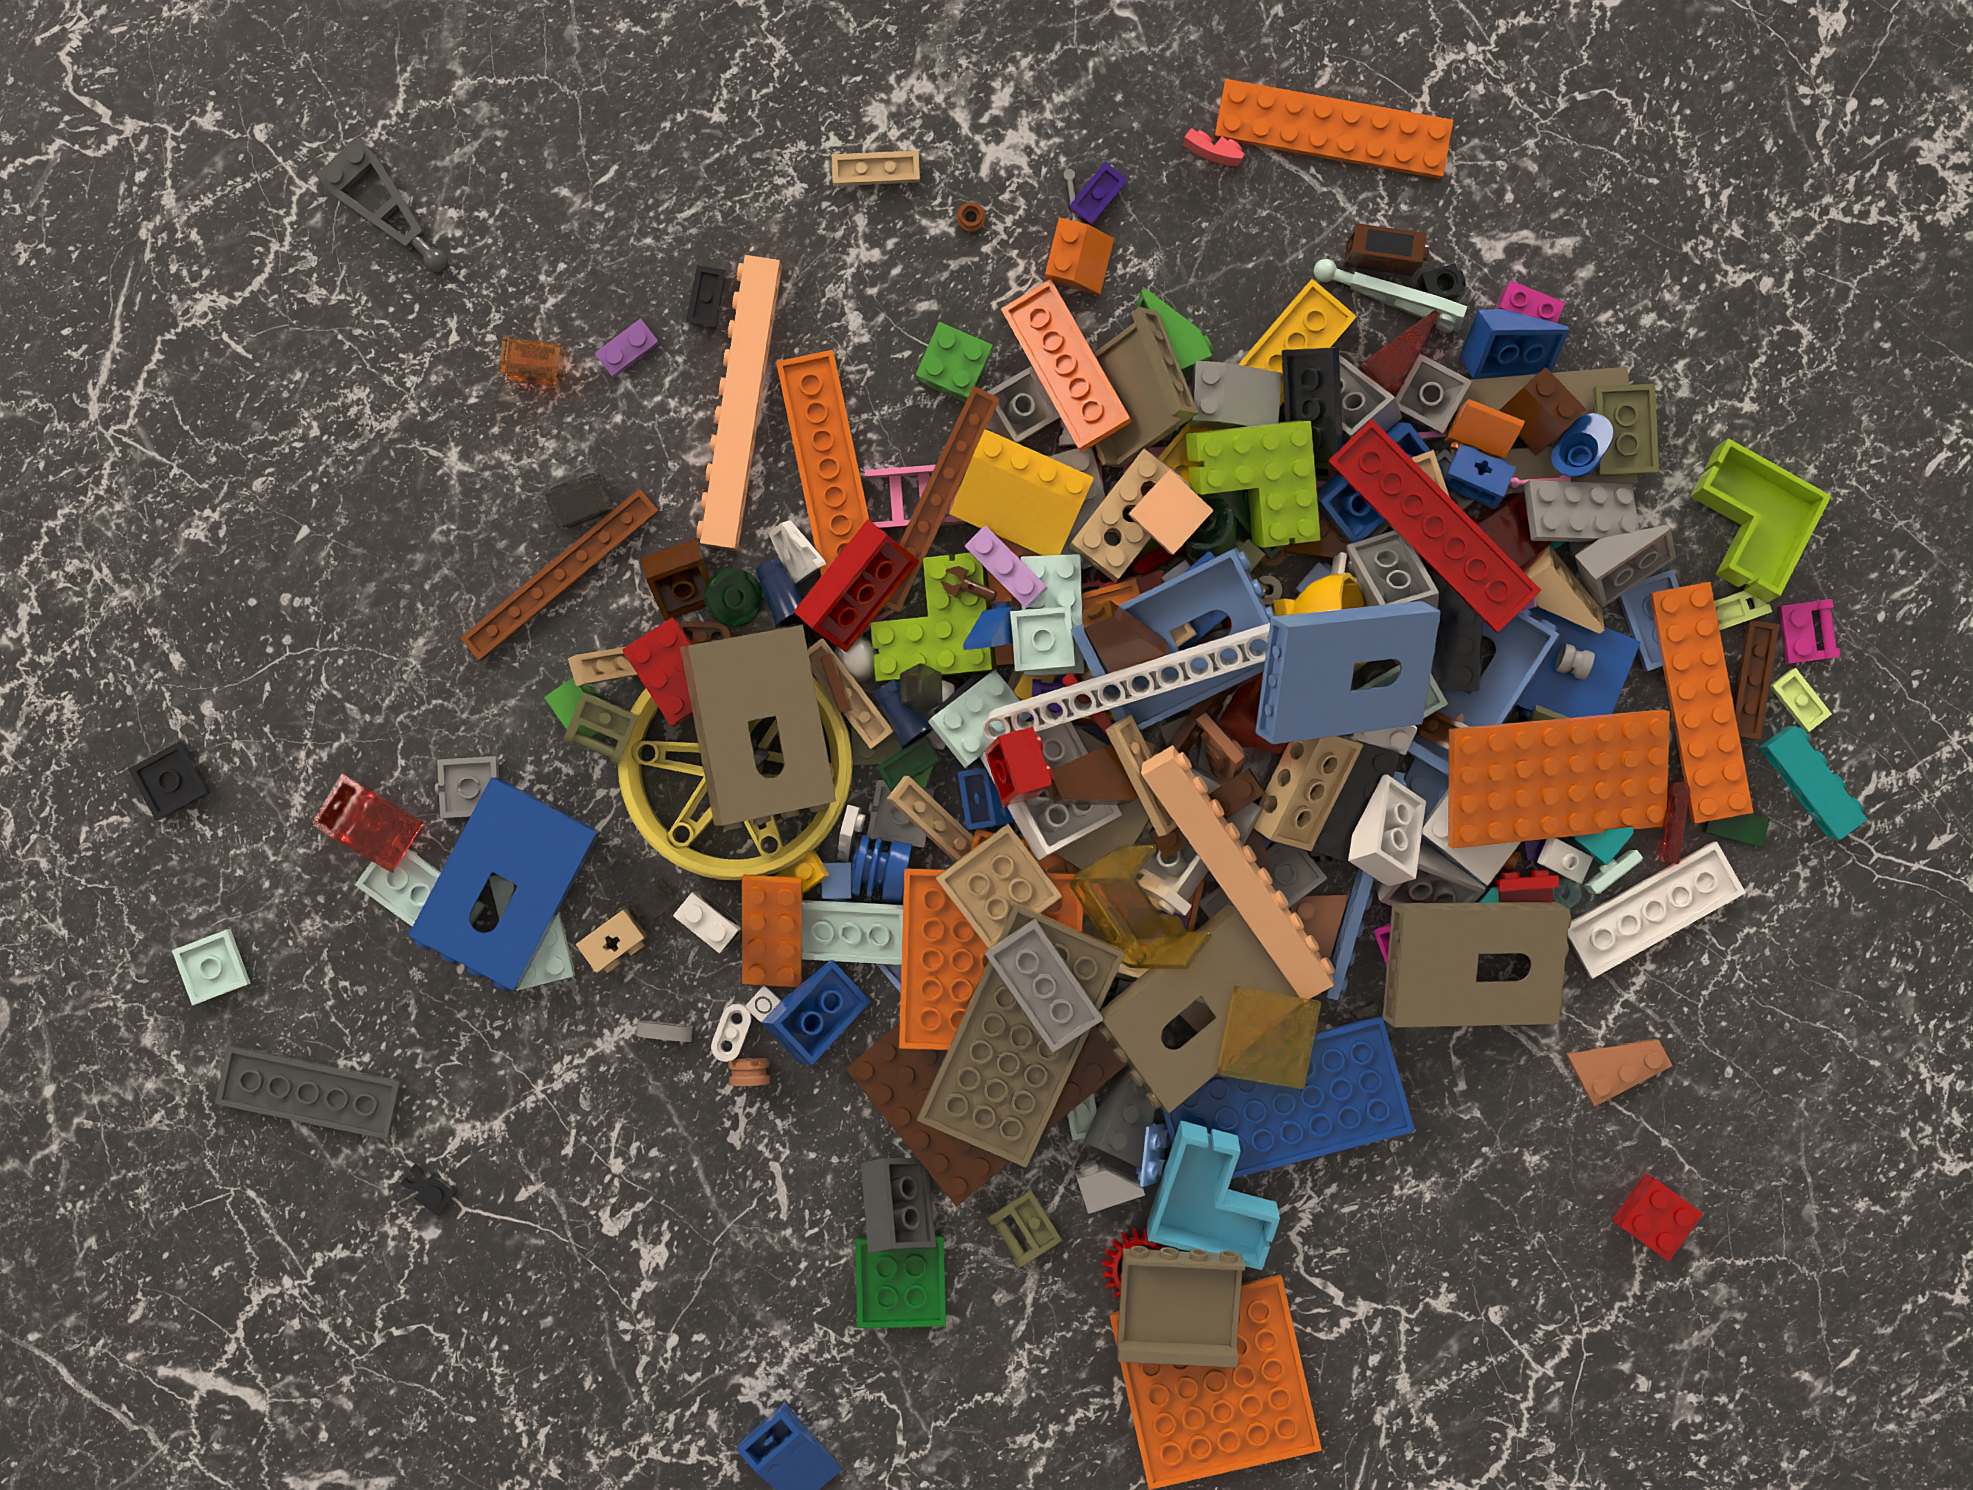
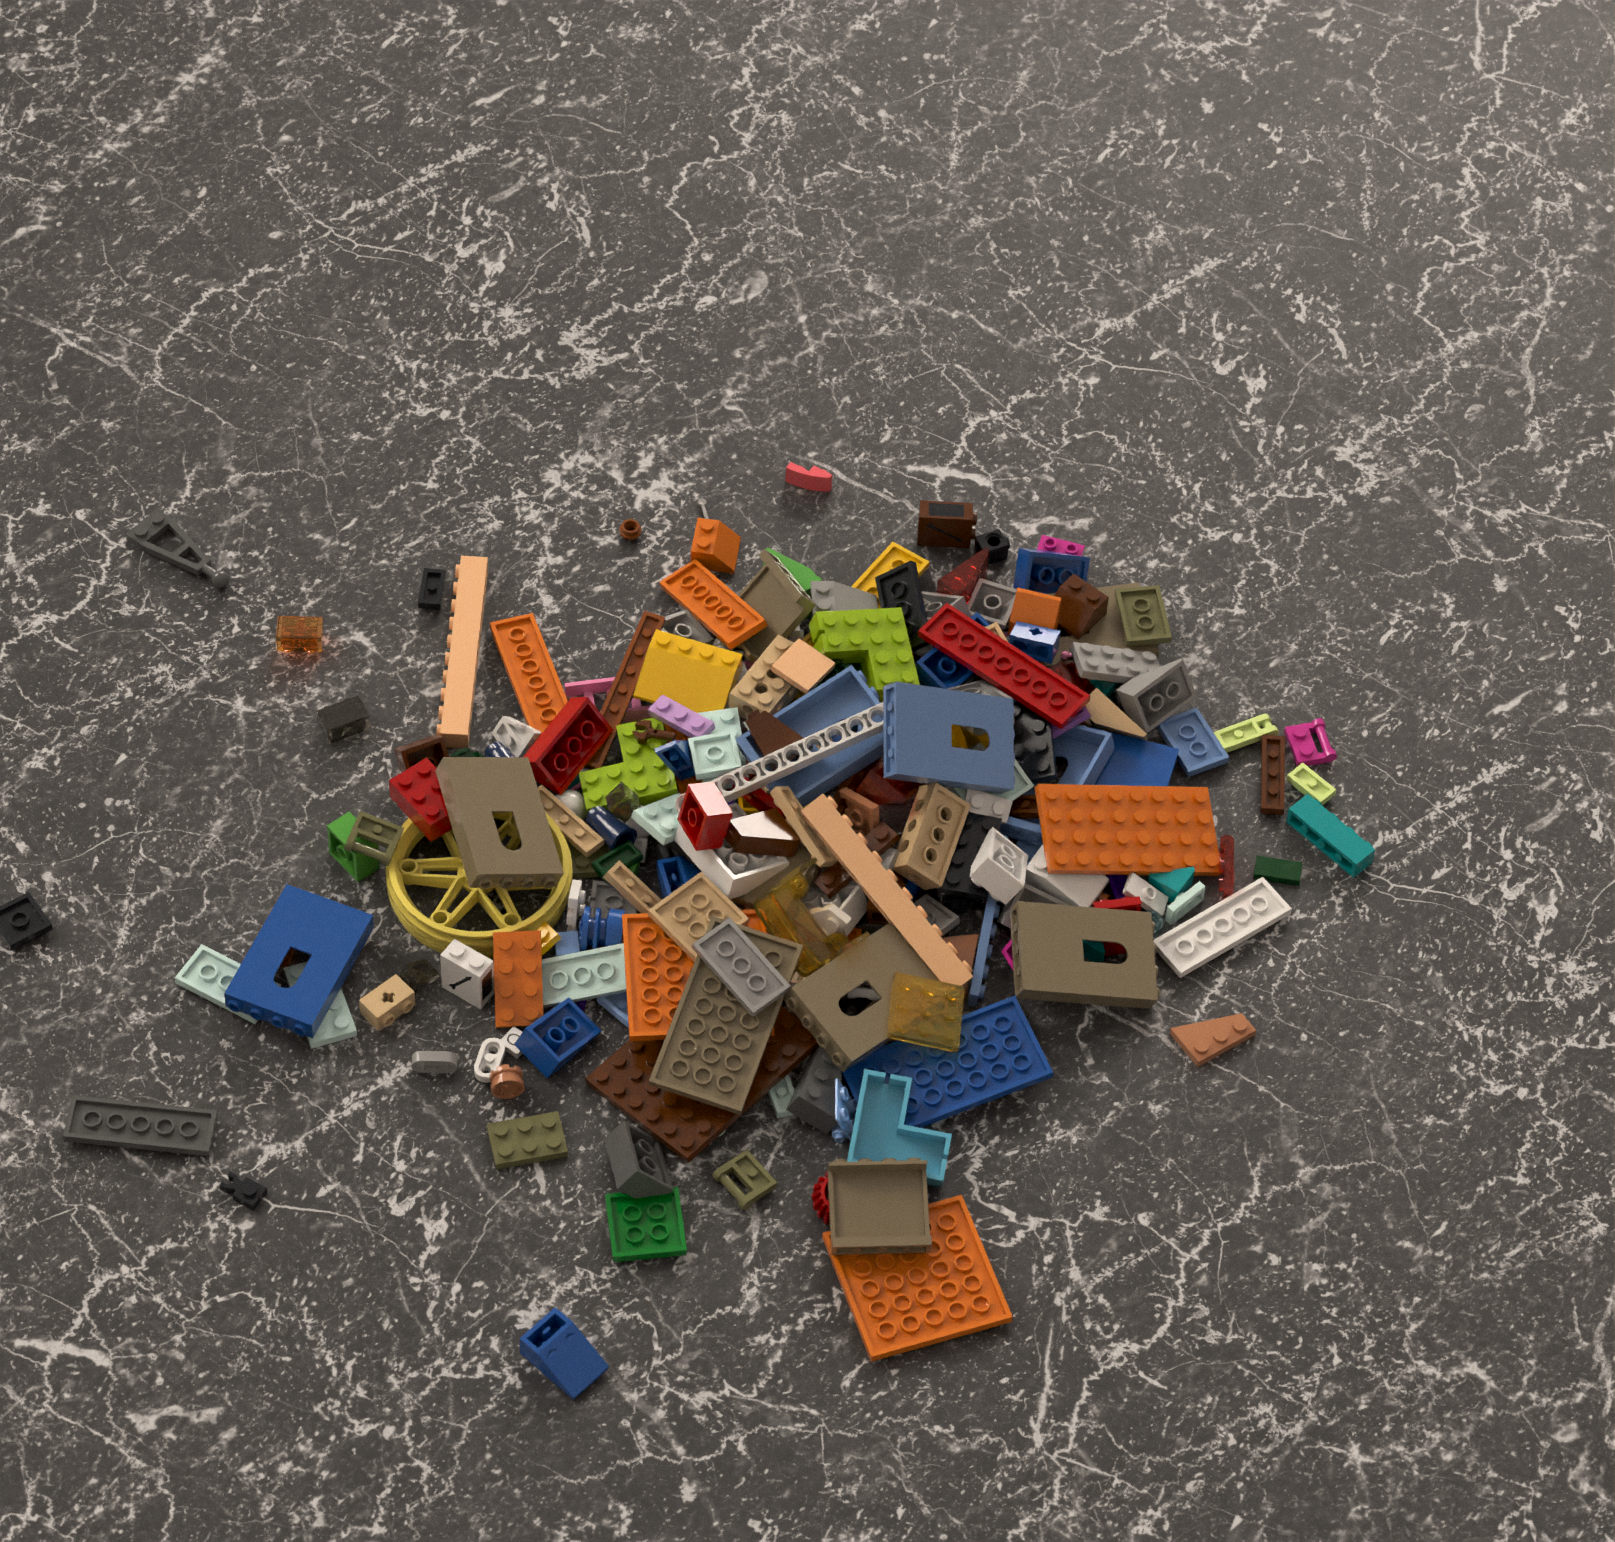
camera: 10 degrees left, 35 degrees down
(211, 967) = (56, 1044): light aqua plate -> none
(367, 822) = (184, 929): clear red slope -> none
(463, 783) = (256, 906): light grey plate -> none
(559, 575) = (328, 767): dark orange plate -> none
(600, 667) = (360, 802): tan plate -> none
(627, 348) = (372, 625): medium lavender plate -> none
(769, 1147) = (527, 1140): none -> olive plate
(836, 683) = (556, 806): reddish brown tile -> none
(875, 168) = (555, 504): tan plate -> none
(953, 362) = (623, 612): bright green brick -> none
(1097, 194) = (726, 507): dark purple plate -> none
(1105, 1186) = (809, 1134): light grey slope -> none
(1333, 129) = (899, 463): orange plate -> none
(1398, 296) = (999, 554): light aqua plate -> none
(1574, 661) = (1128, 758): light grey wheel -> none
(1582, 445) = (1110, 624): blue piece -> none
(1657, 1217) = (1261, 1131): red brick -> none
(1701, 702) = (1233, 788): orange plate -> none
(1774, 516) = (1261, 662): lime piece -> none

